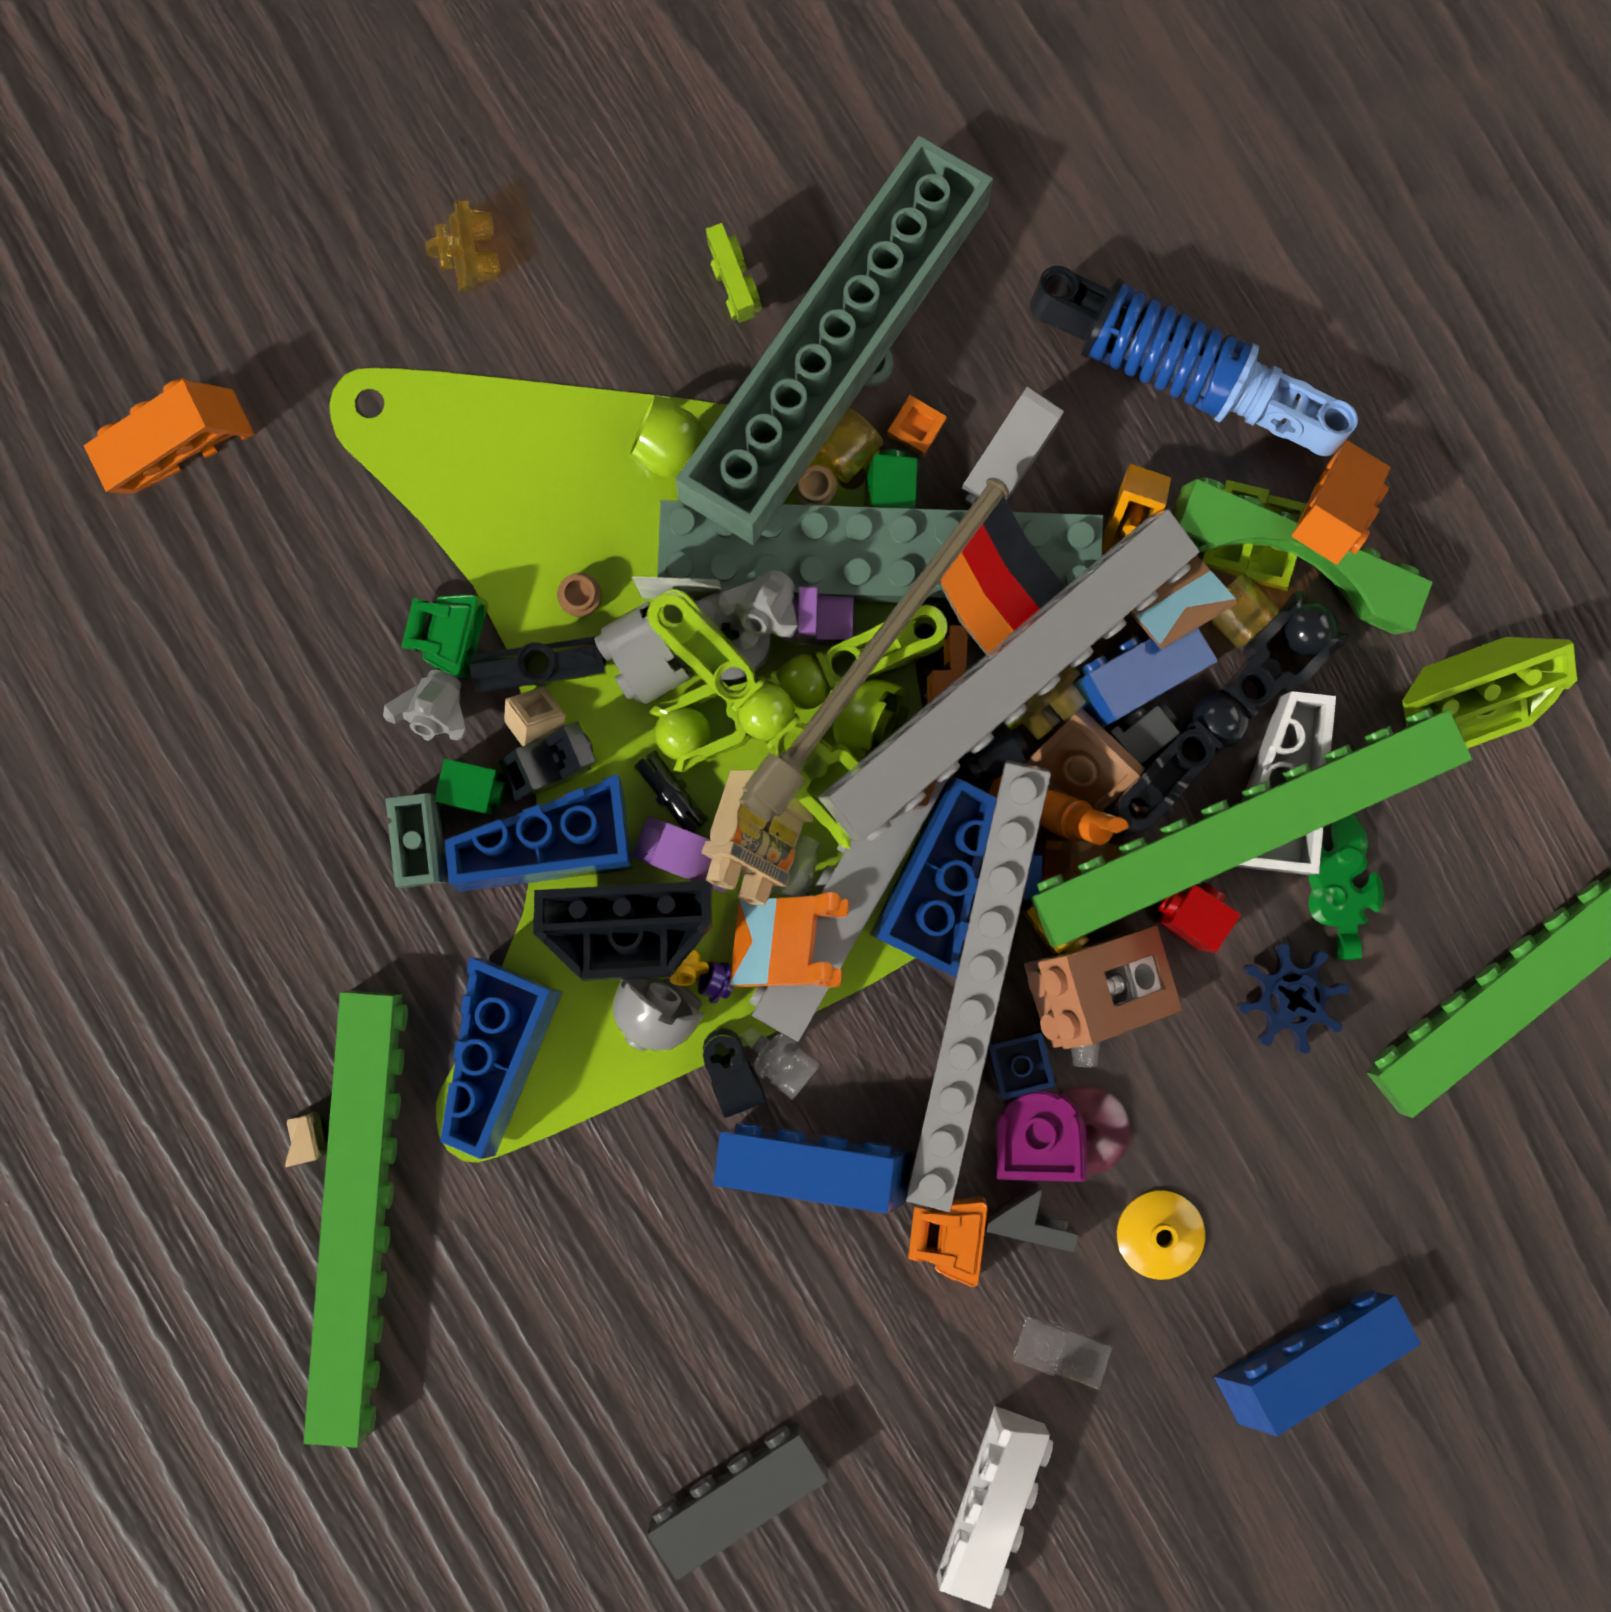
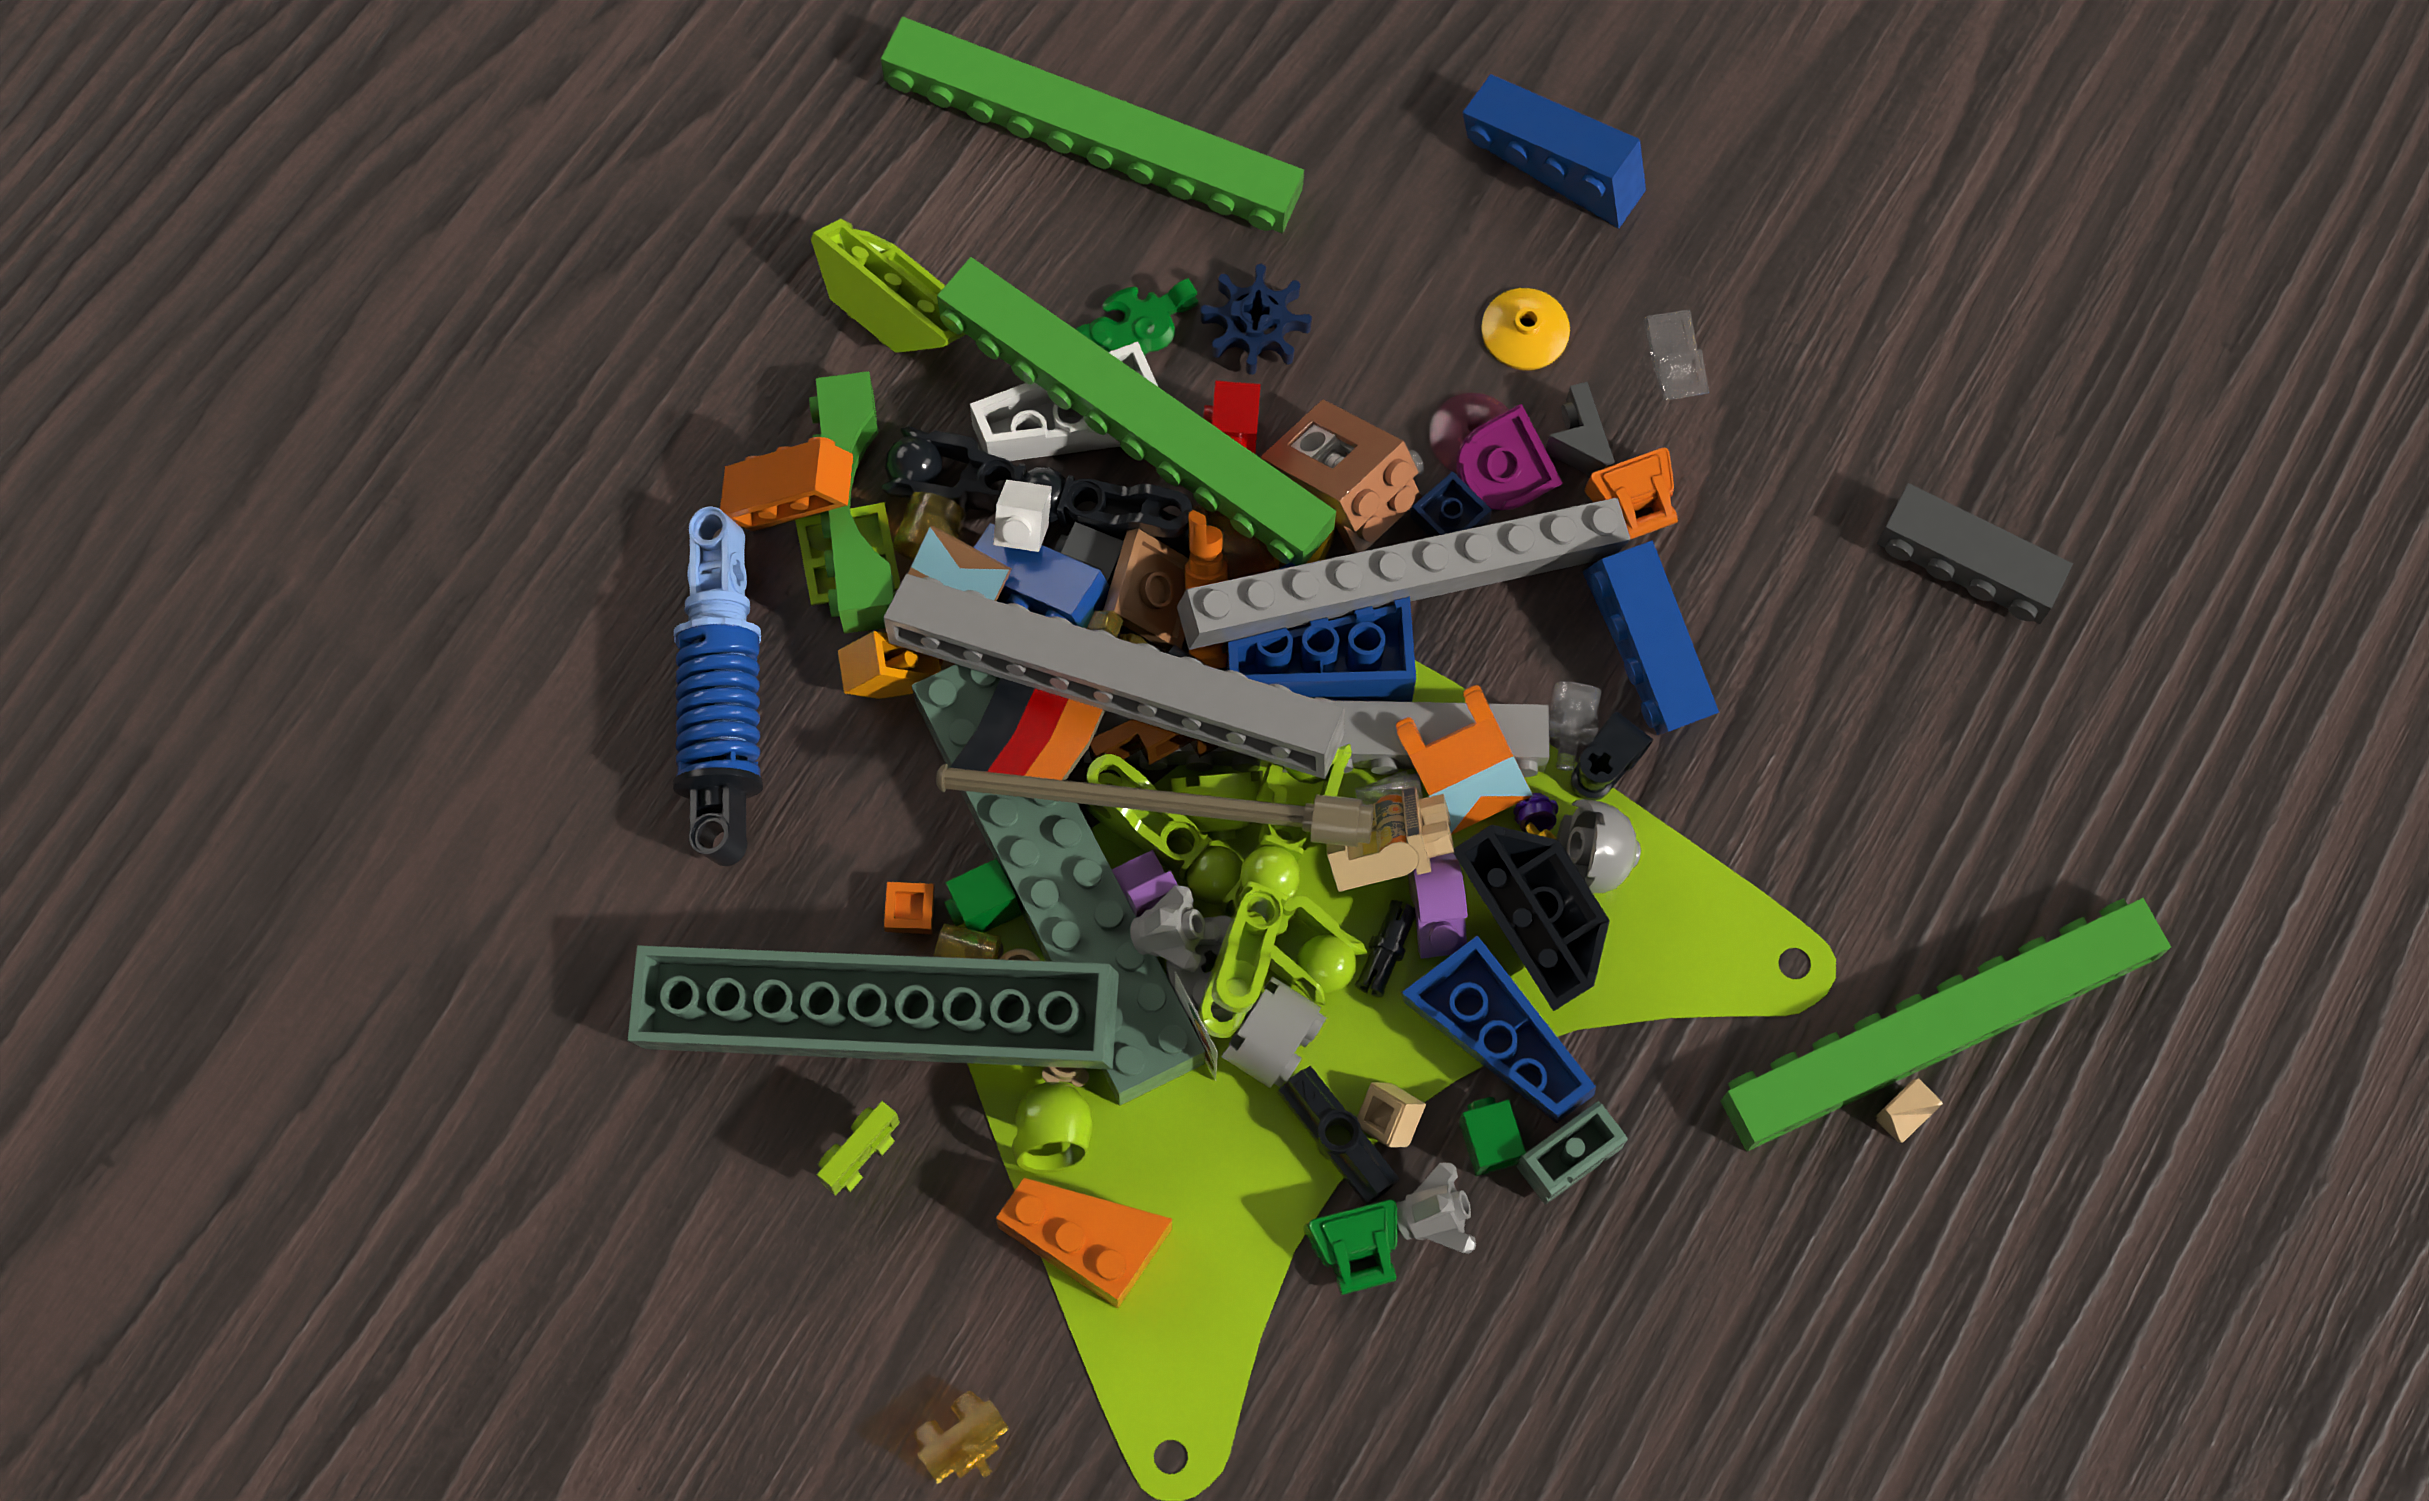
camera: 125 degrees left, 15 degrees down
(495, 1051) = (1711, 972): blue wedge -> none
(548, 762) = (1424, 1070): black brick -> none
(567, 418) = (1085, 1236): none -> orange wedge
(579, 594) = (1247, 1137): medium nougat plate -> none
(993, 1508) = (1841, 344): white wedge -> none
(1014, 445) = (892, 802): light grey slope -> none
(1204, 683) = (1022, 515): none -> white brick

